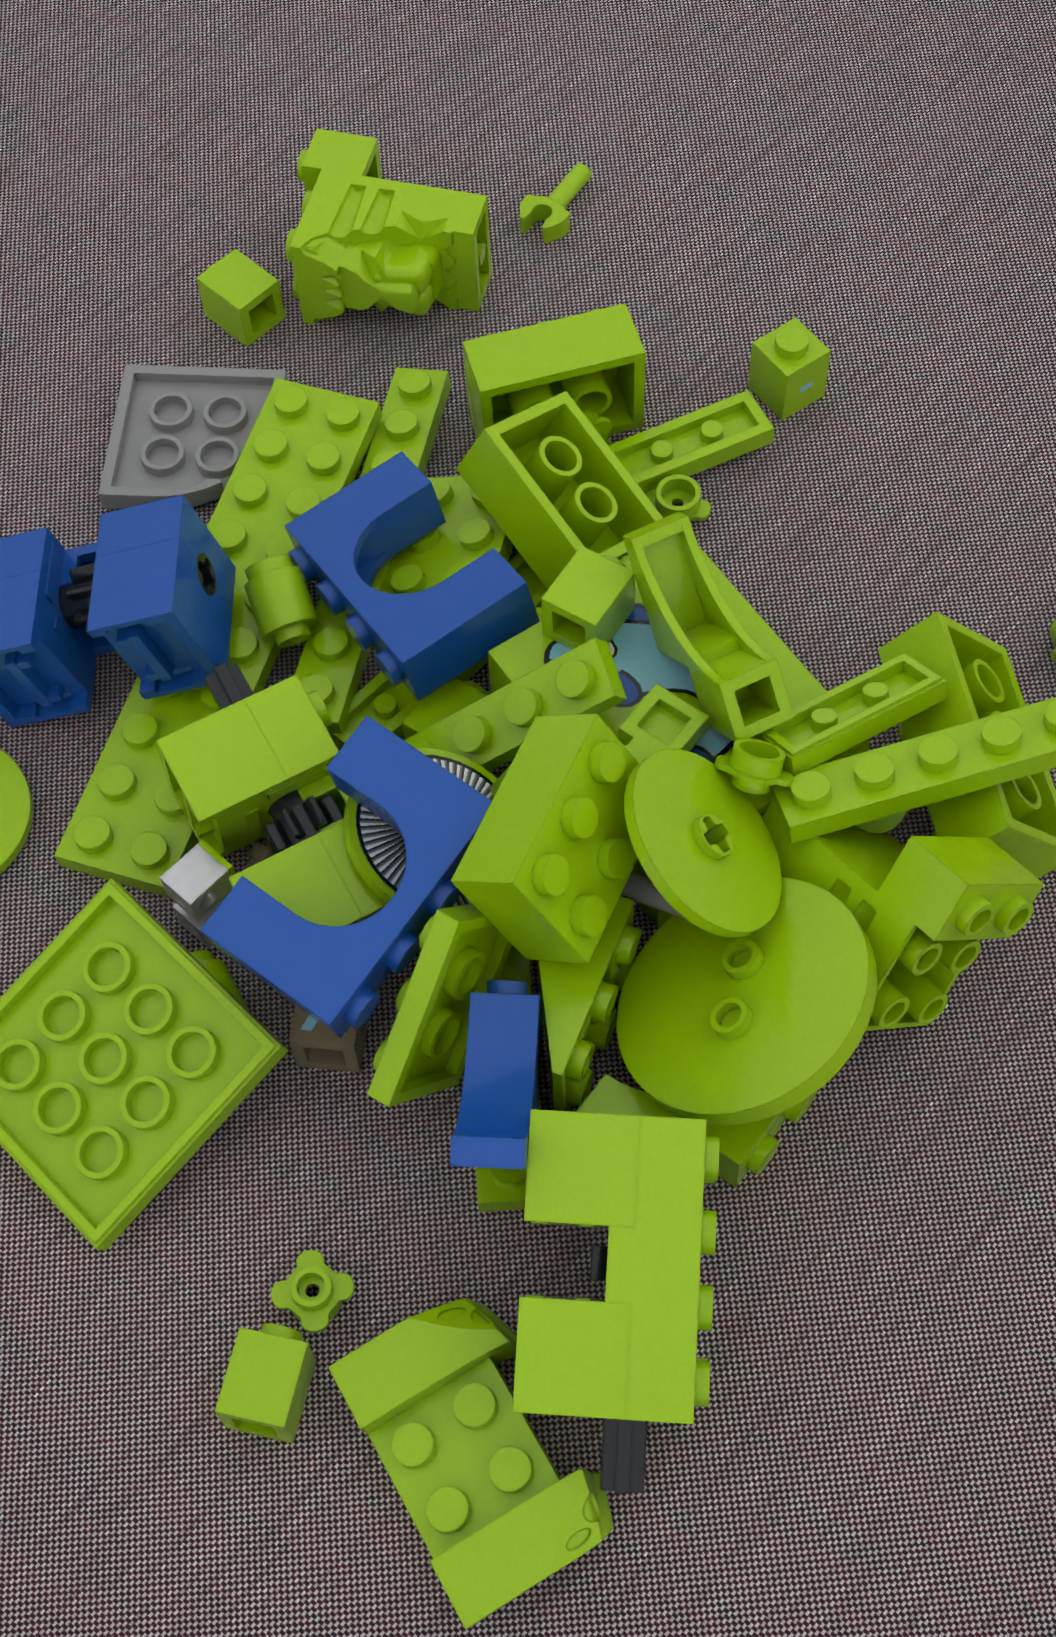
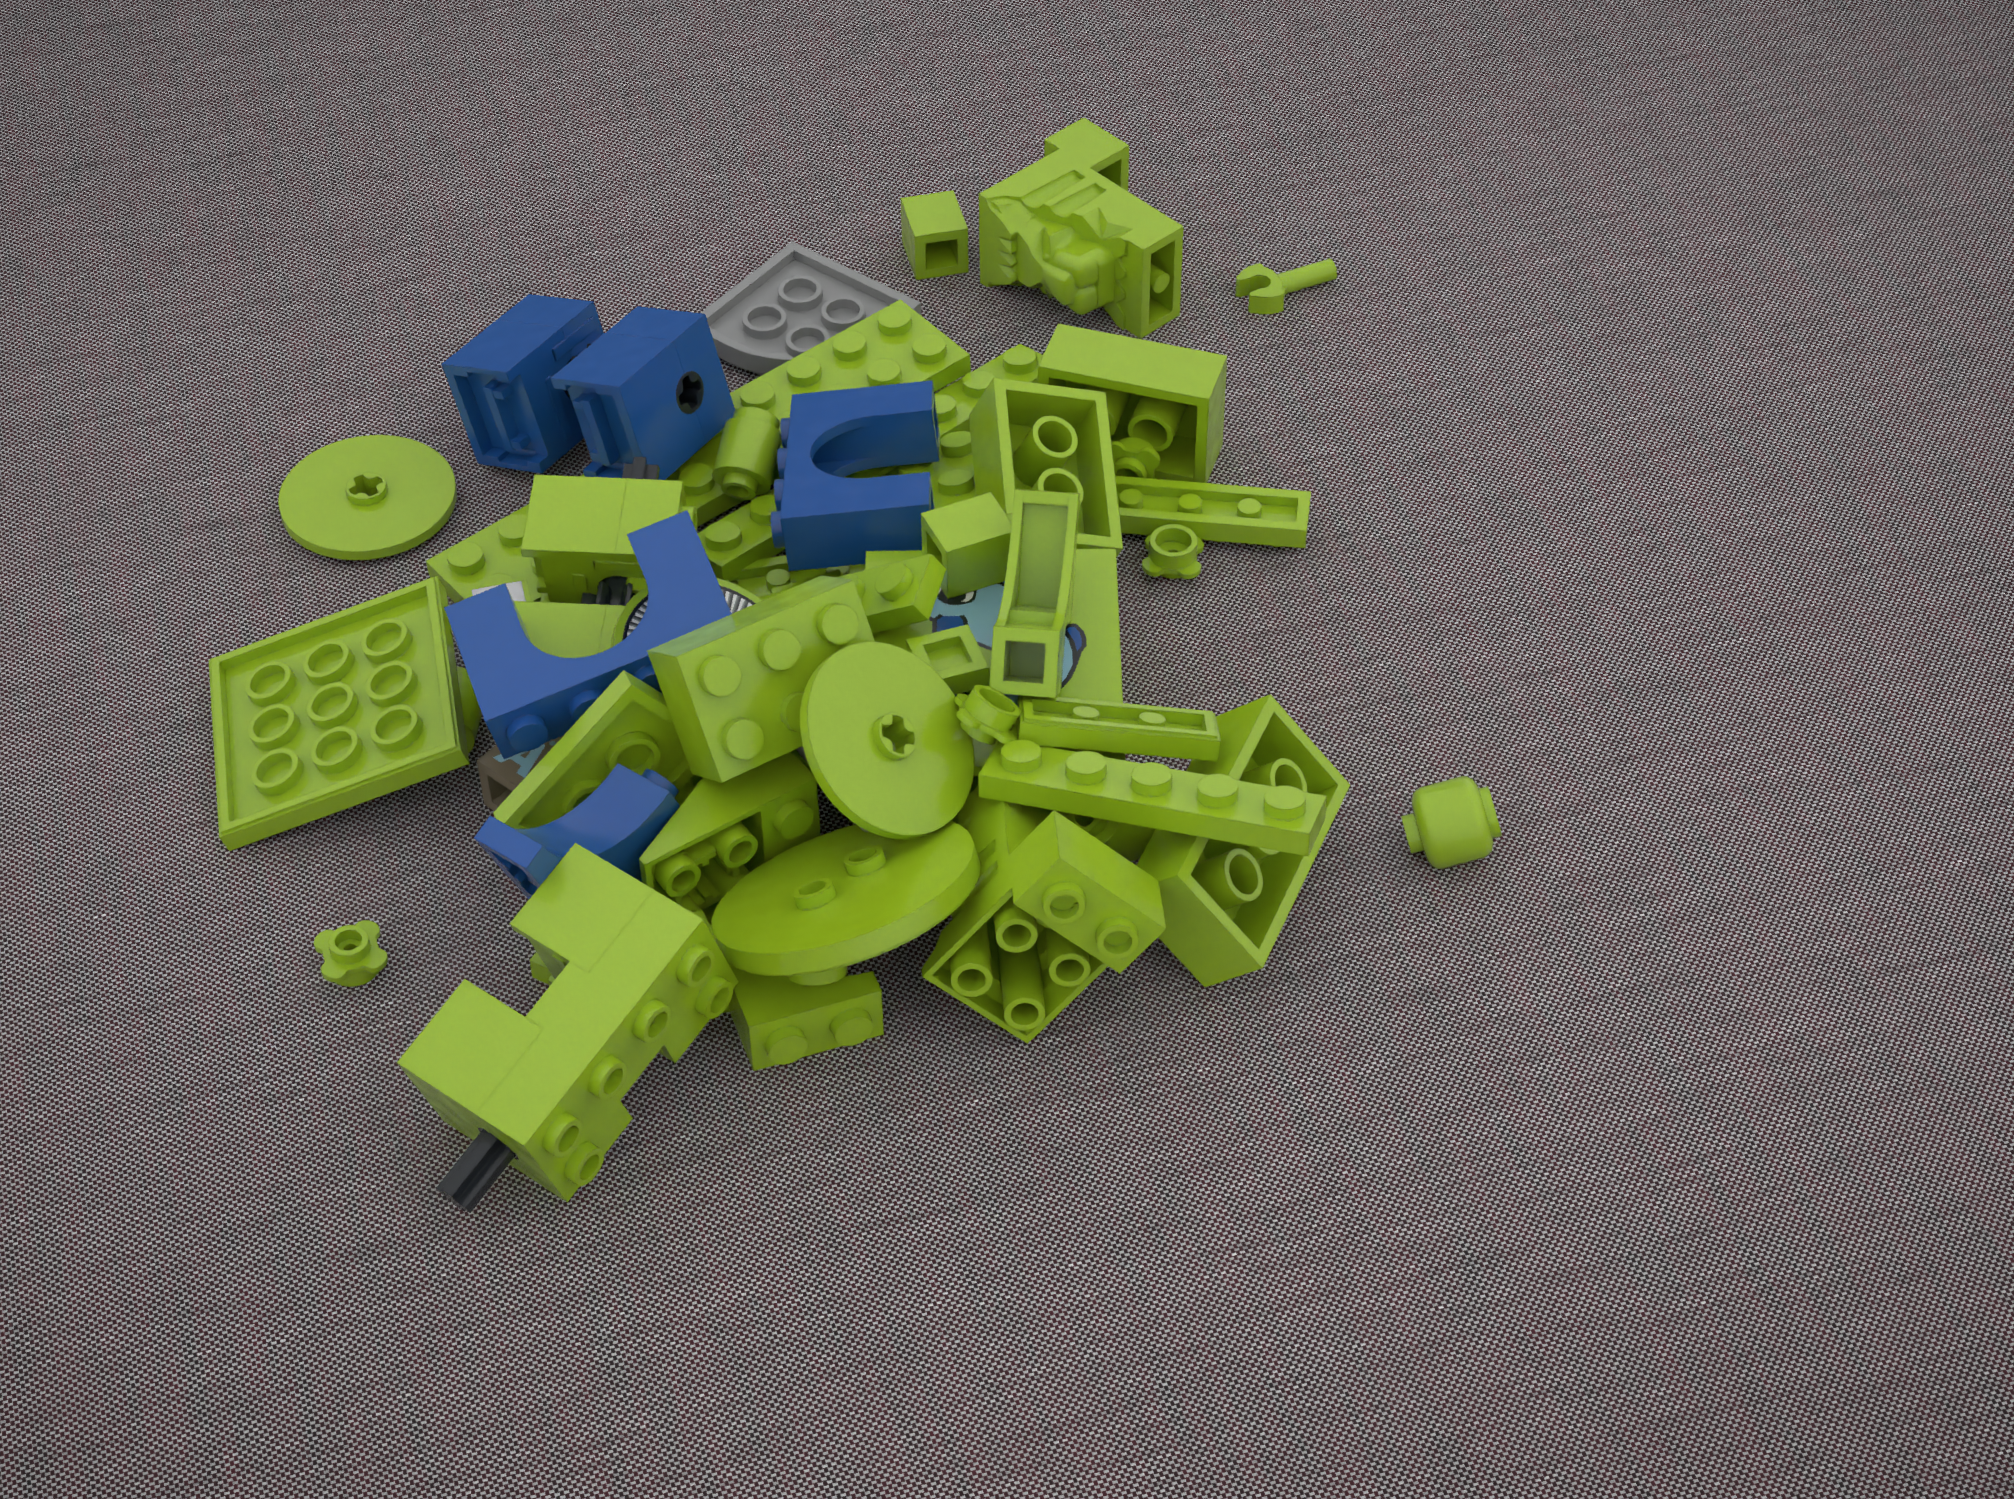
camera: 30 degrees right, 15 degrees down
(266, 1382) = (258, 988): lime brick -> none
(465, 1460) = (356, 1121): lime piece -> none
(789, 368) = (1364, 492): lime brick -> none

